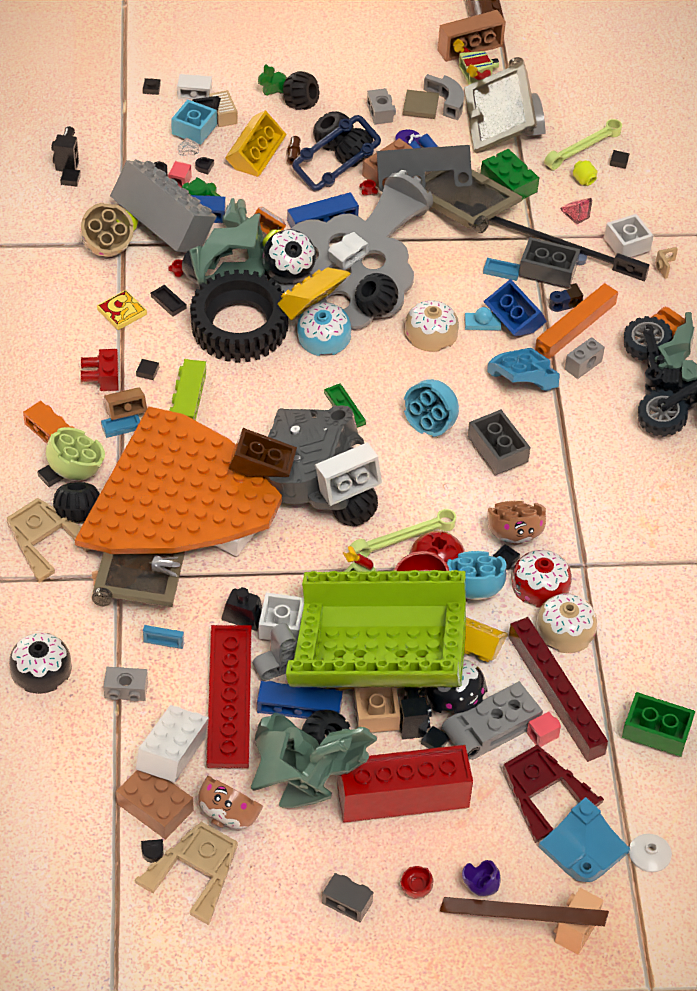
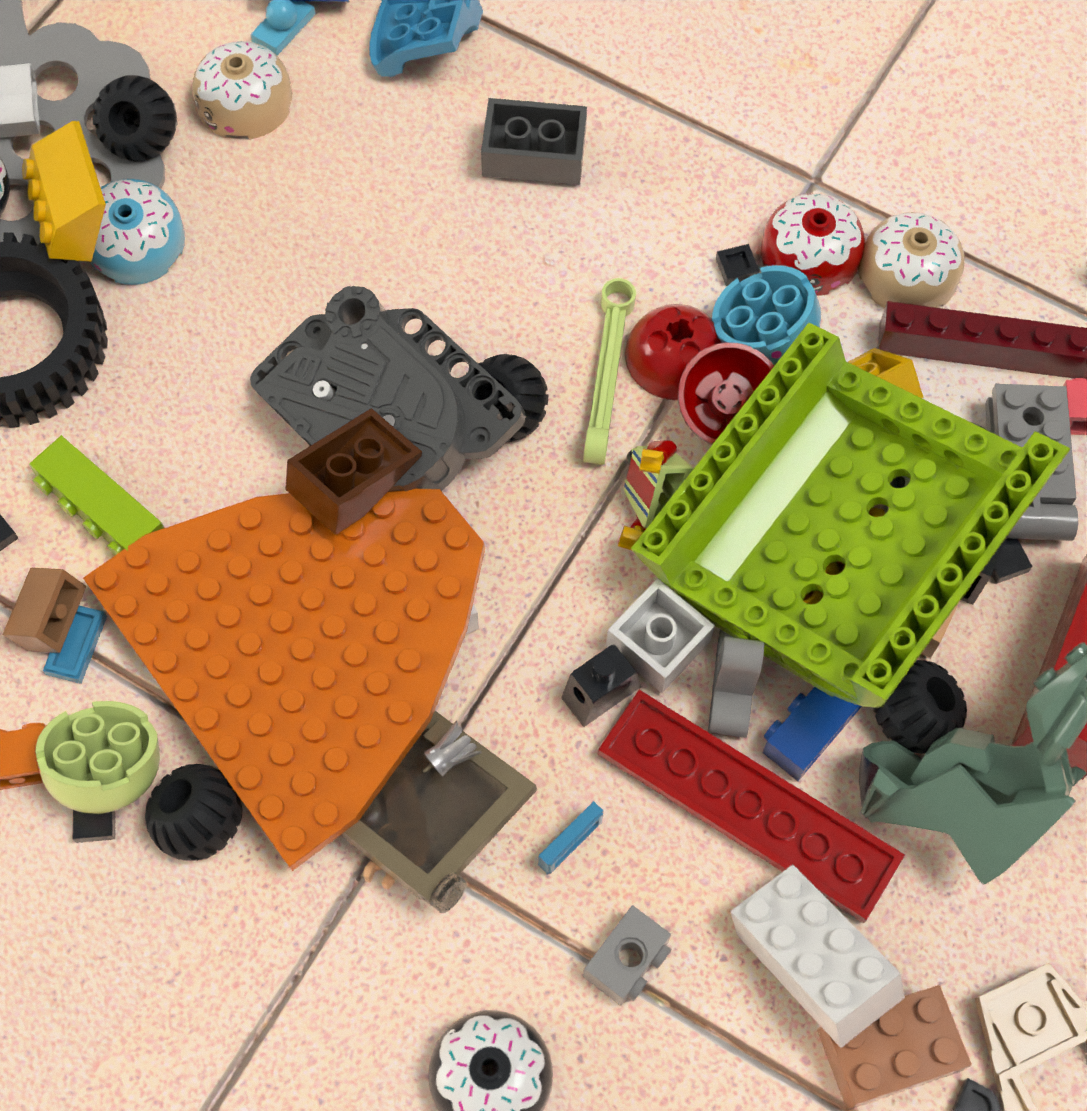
camera: 55 degrees left, 15 degrees up
(34, 524) = (185, 913): tan wing -> none
(227, 805) = (986, 941): nougat cylinder -> none
(338, 396) = (288, 296): green tile -> none
(348, 474) = (494, 365): white brick -> none
(431, 407) = (416, 174): medium azure cylinder -> none
(517, 521) = (703, 206): nougat cylinder -> none

